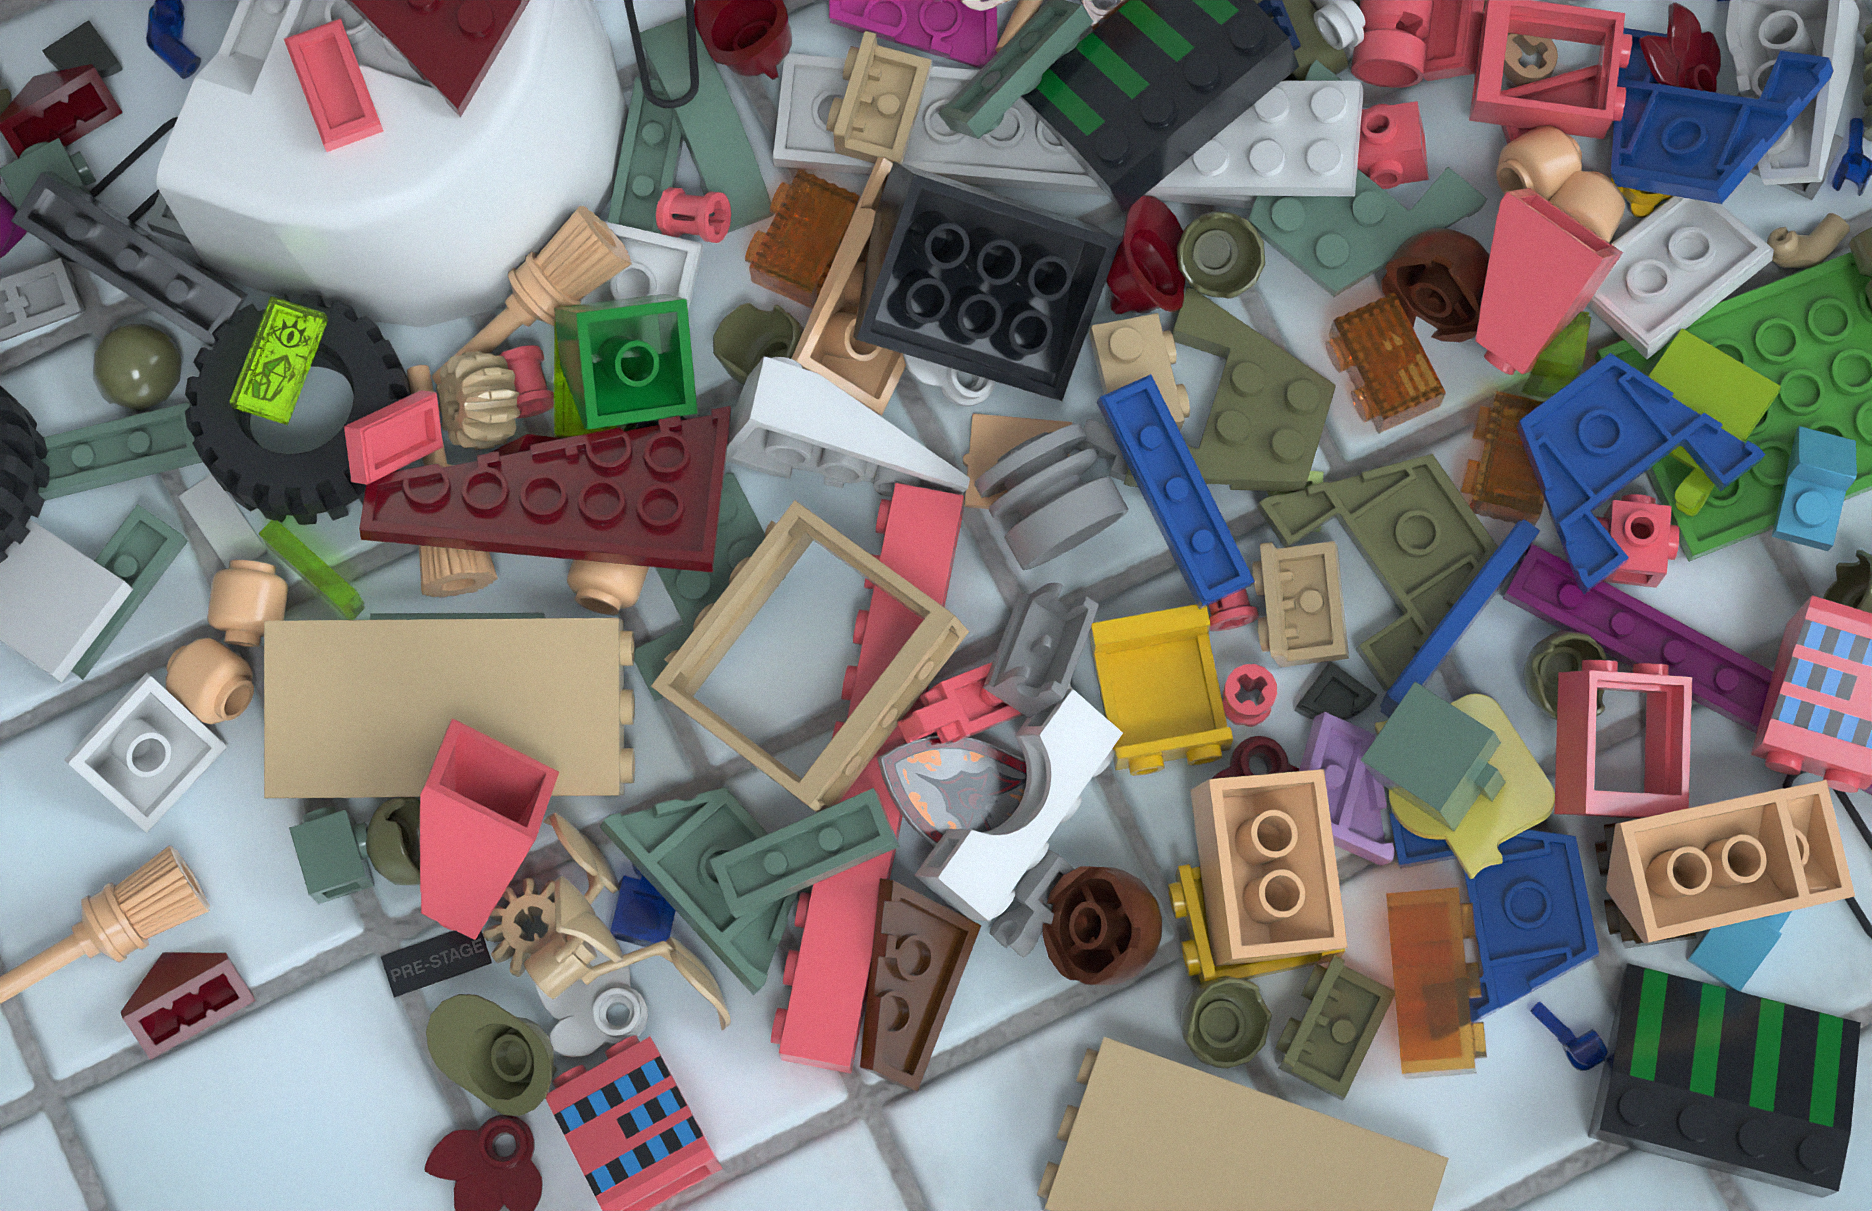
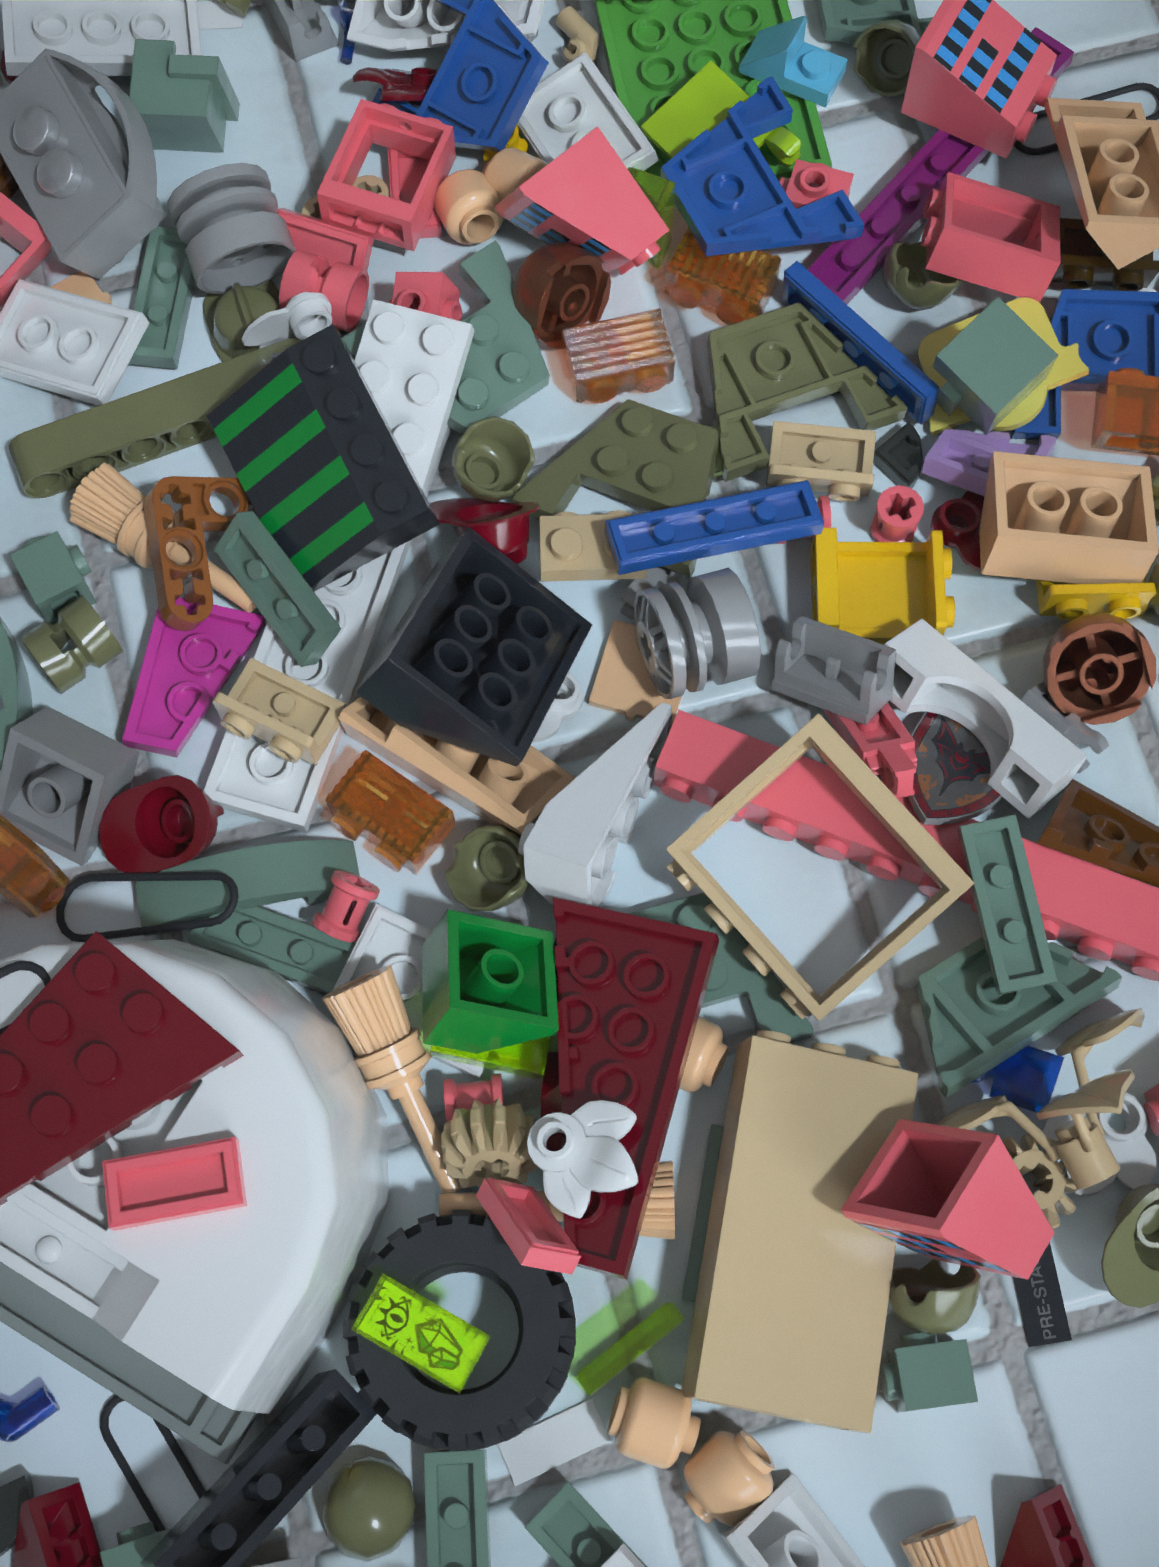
camera: 80 degrees left, 5 degrees down
(463, 475) = (590, 1157): none -> white plate

